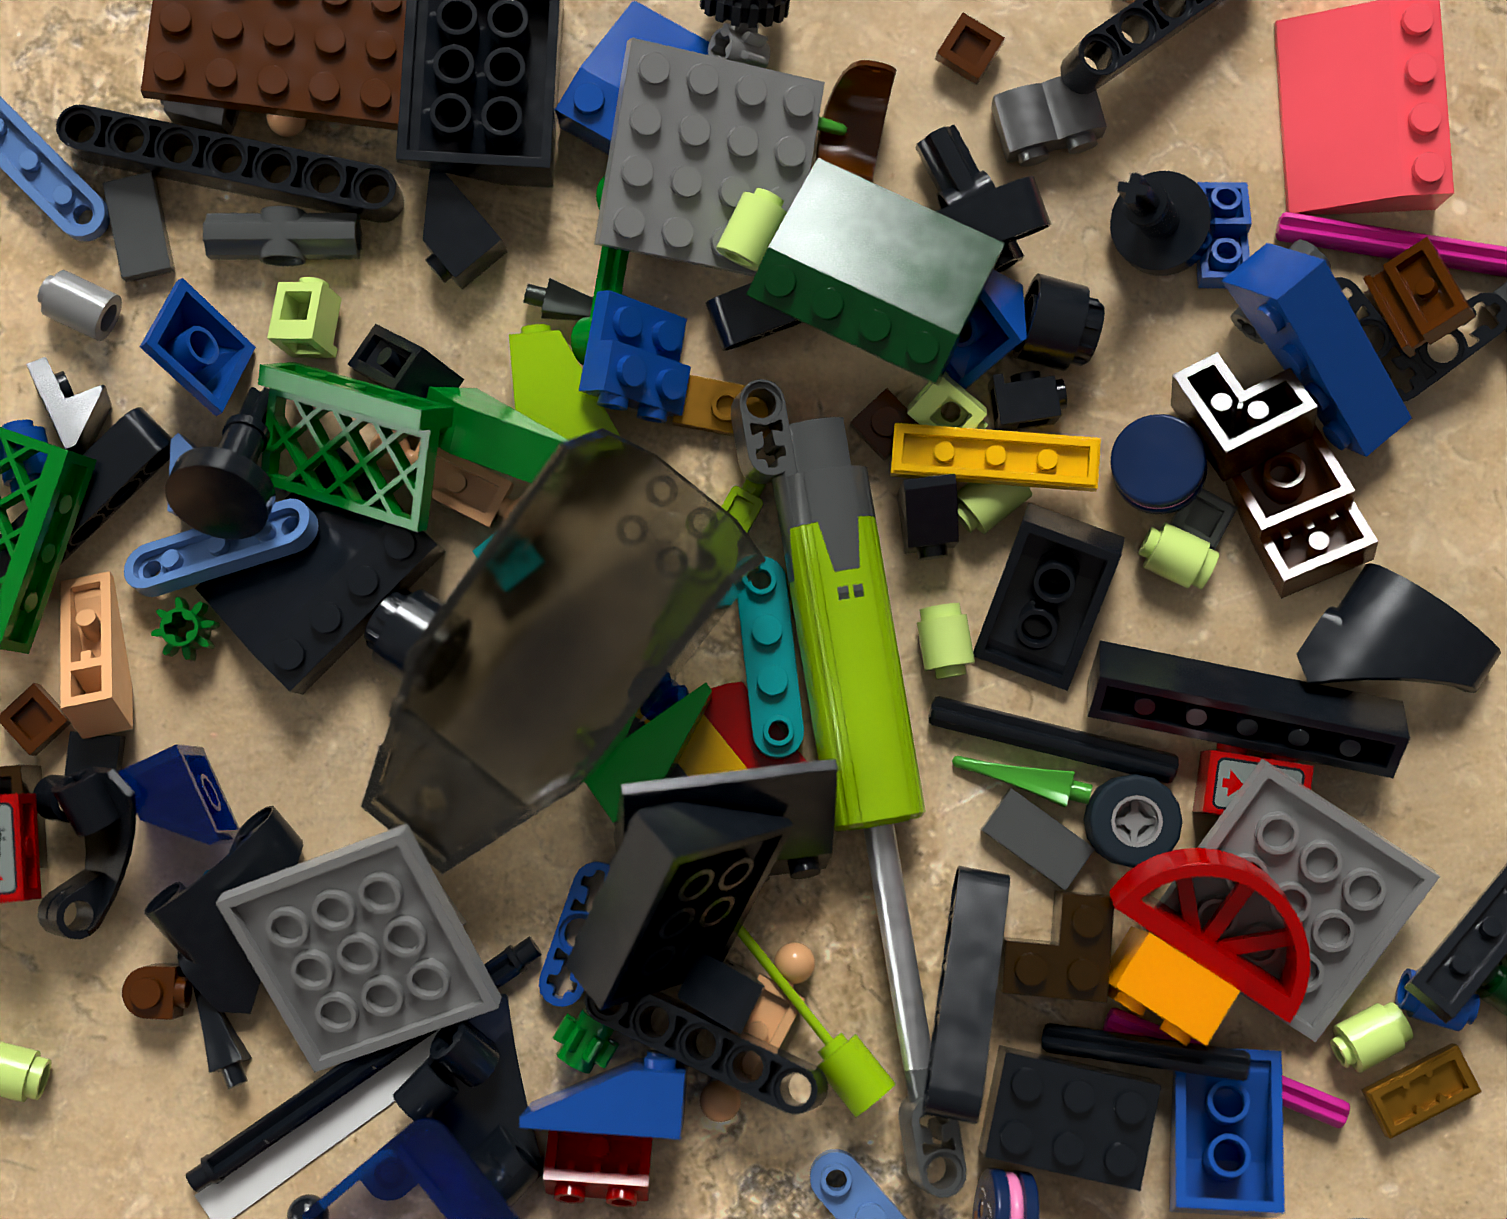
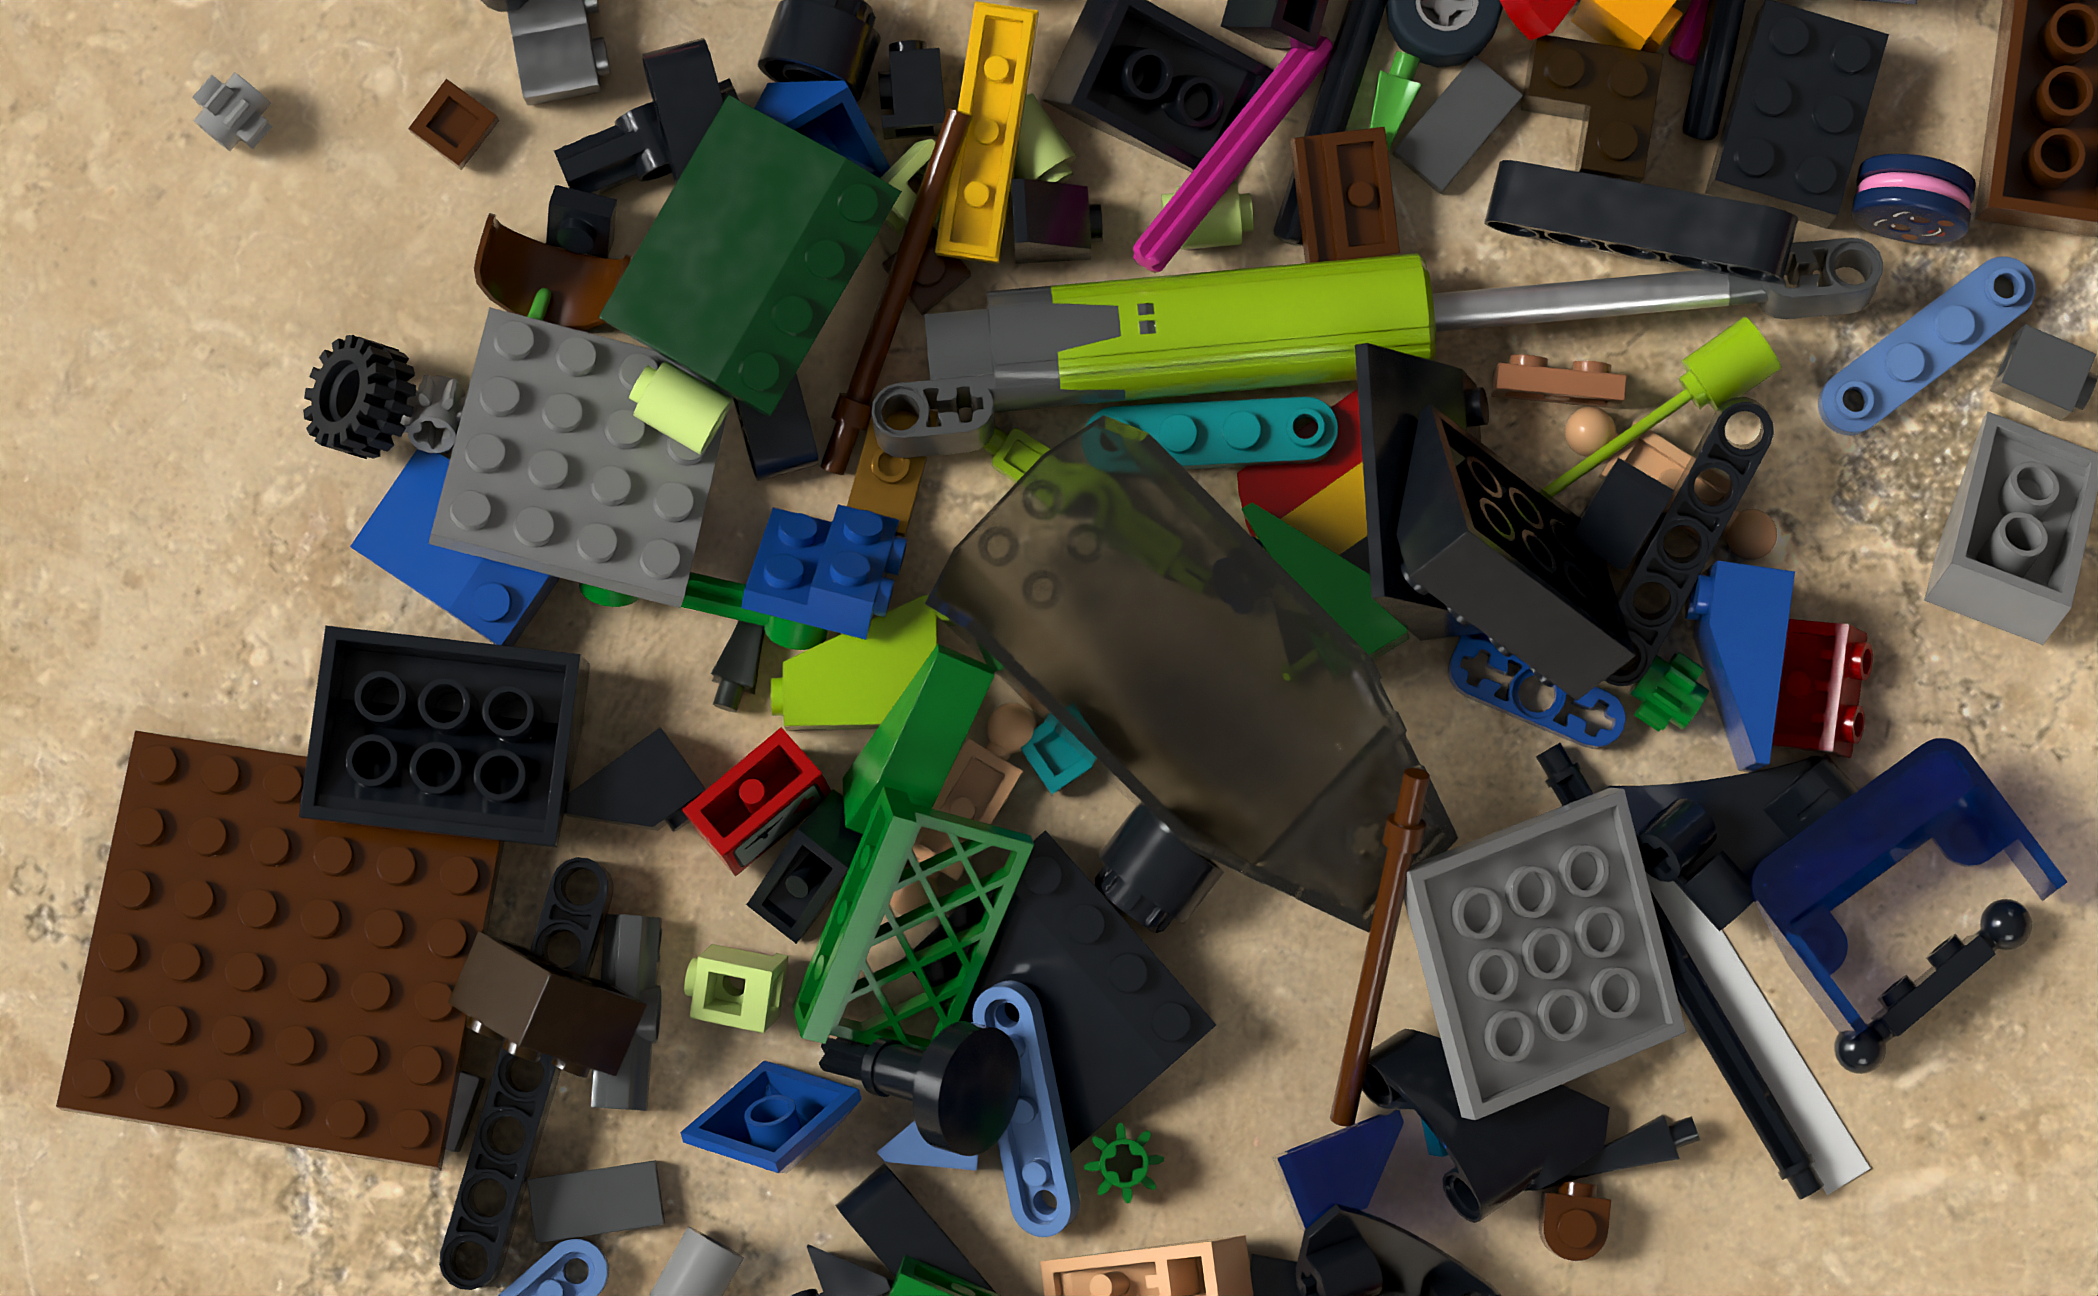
camera: 90 degrees left, 0 degrees up
(264, 162) = (545, 1008): none -> dark brown brick
(428, 825) = (1402, 838): none -> reddish brown bar
(449, 320) = (757, 801): none -> red brick
(832, 957) = (1585, 385): none -> nougat plate
(864, 396) = (854, 407): none -> reddish brown bar
(899, 150) = (581, 221): none -> black plate
(969, 750) = (1345, 195): none -> reddish brown plate
(993, 653) = (1230, 155): none -> dark pink axle

